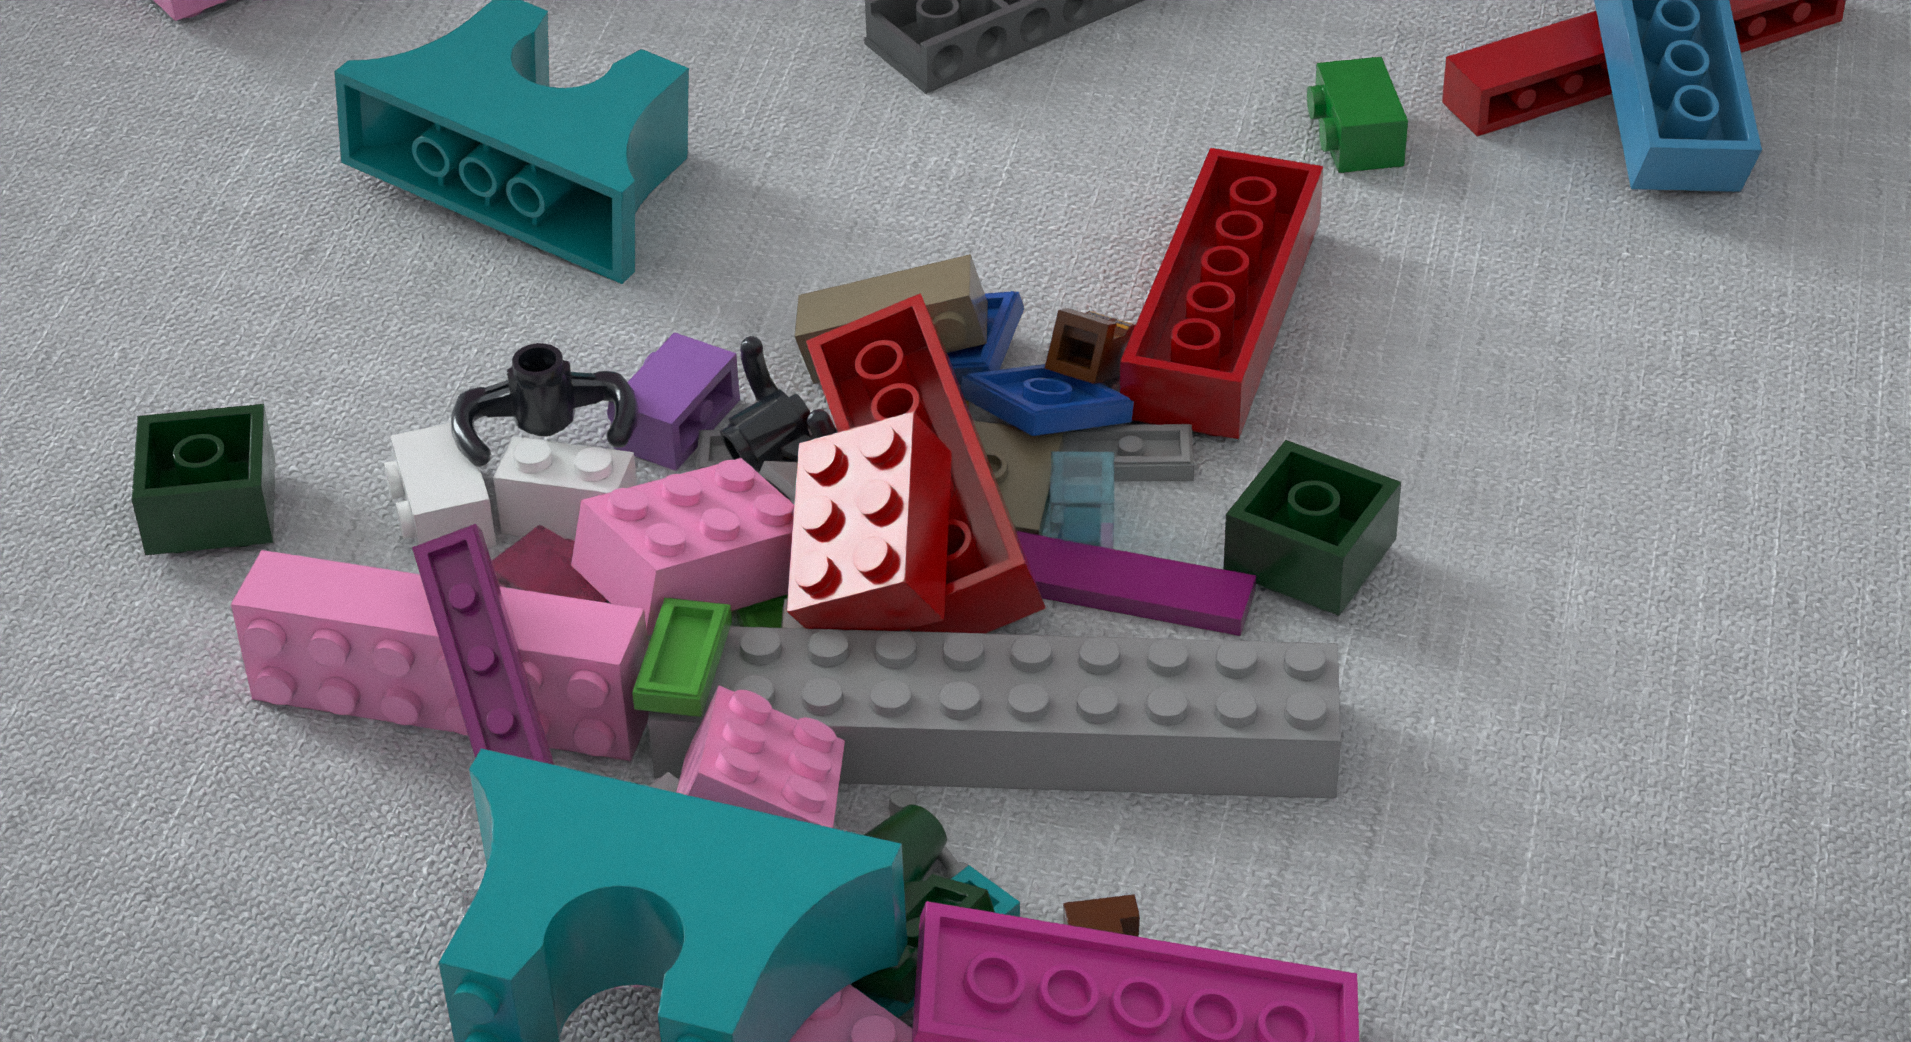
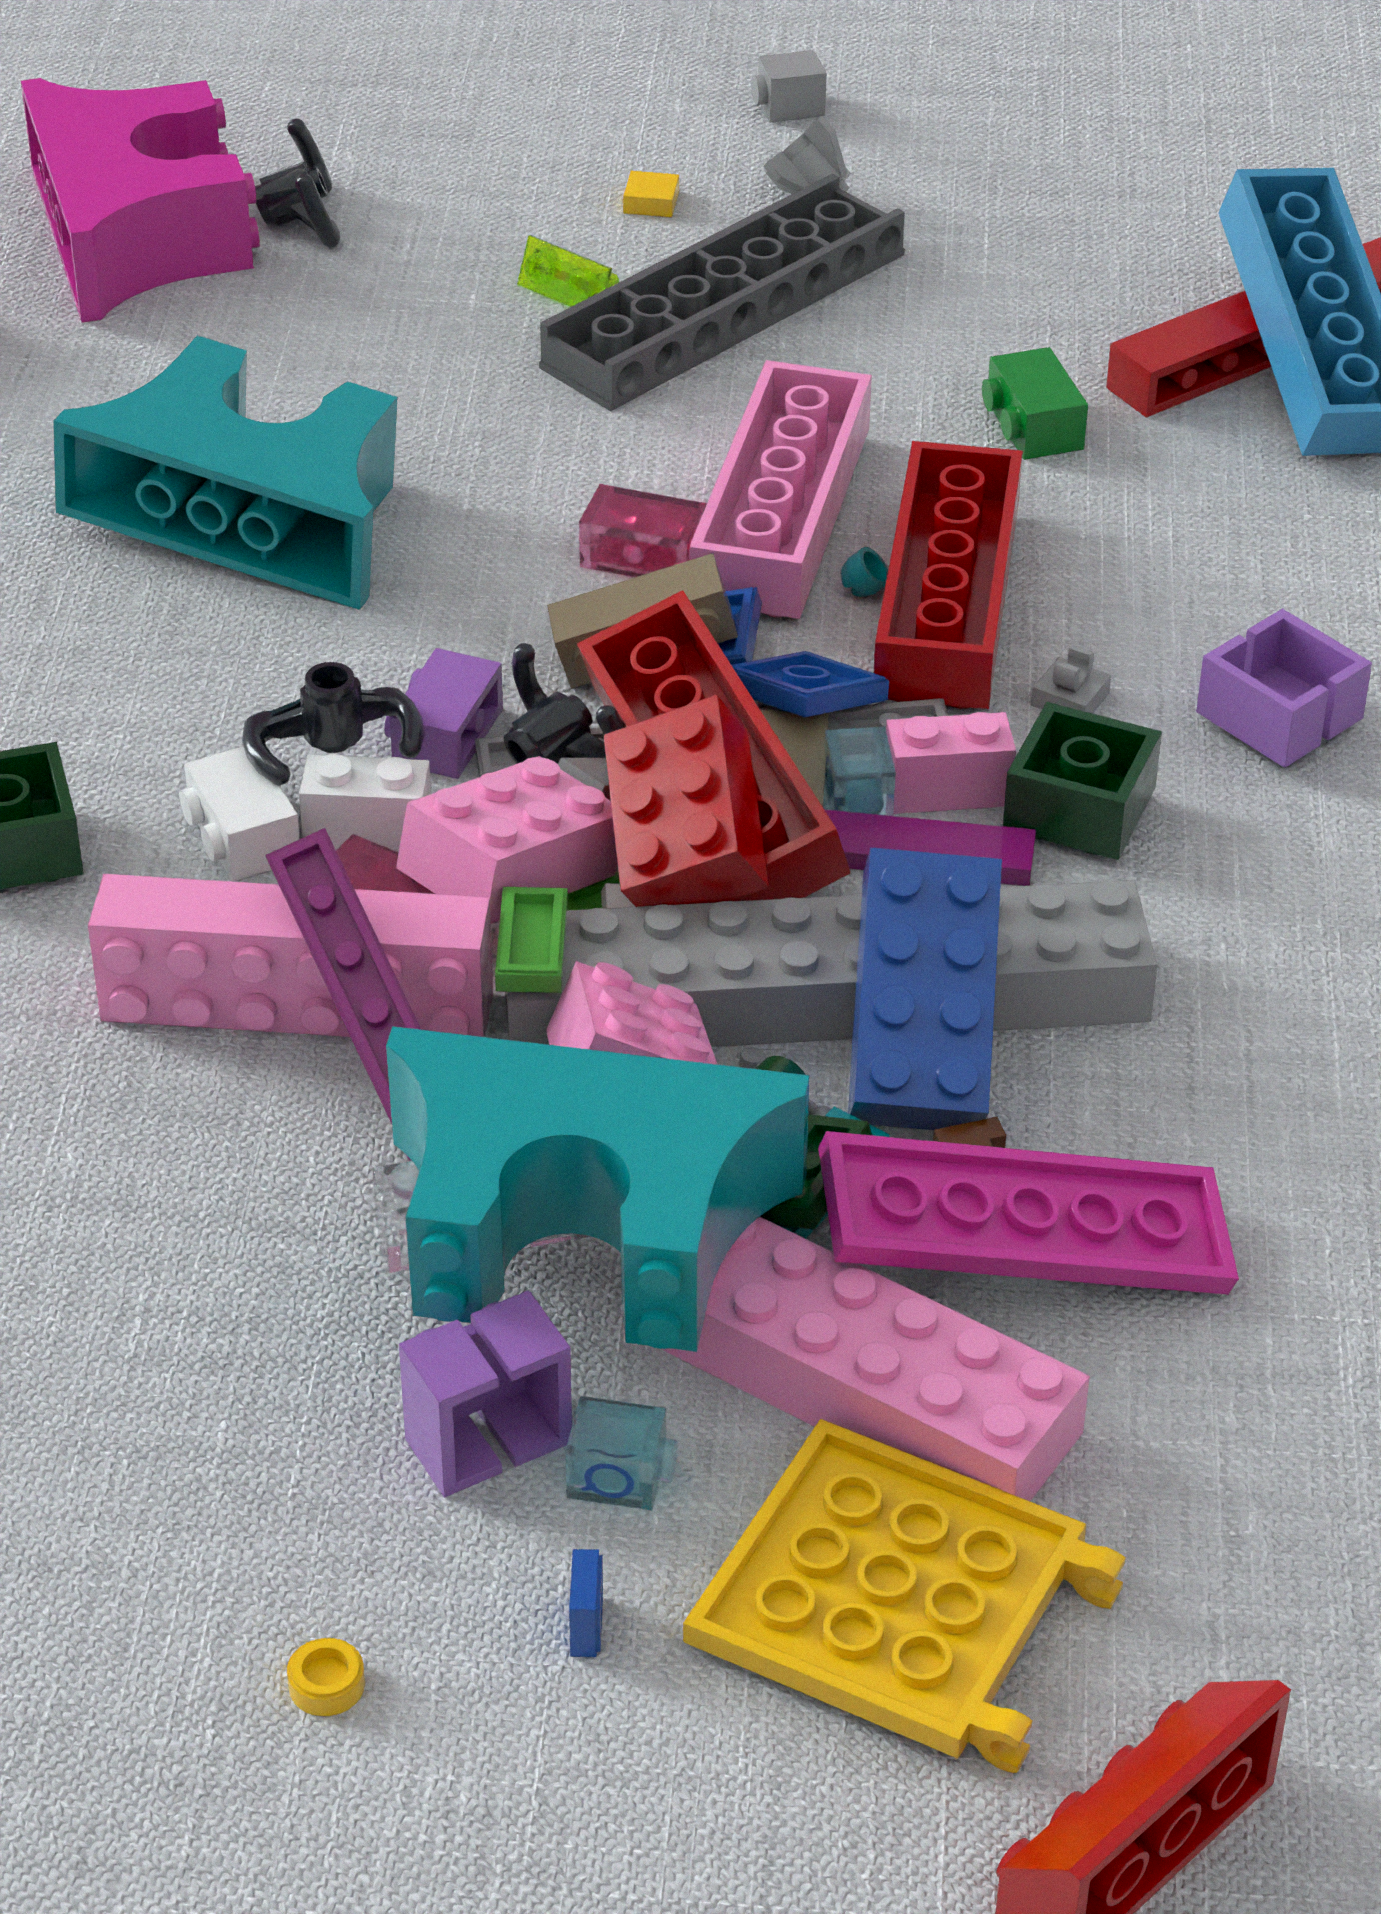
camera: 10 degrees left, 0 degrees up
(918, 223) = (636, 531): none -> clear pink brick
(1074, 183) = (785, 482): none -> bright pink brick
(1078, 748) = (925, 989): none -> blue brick
(1087, 345) = (835, 632): reddish brown leg -> none
(1136, 281) = (864, 573): none -> teal hinge
(1175, 494) = (950, 761): none -> bright pink brick
(1331, 421) = (1072, 683): none -> light grey tile
(1561, 444) = (1283, 687): none -> medium lavender piece

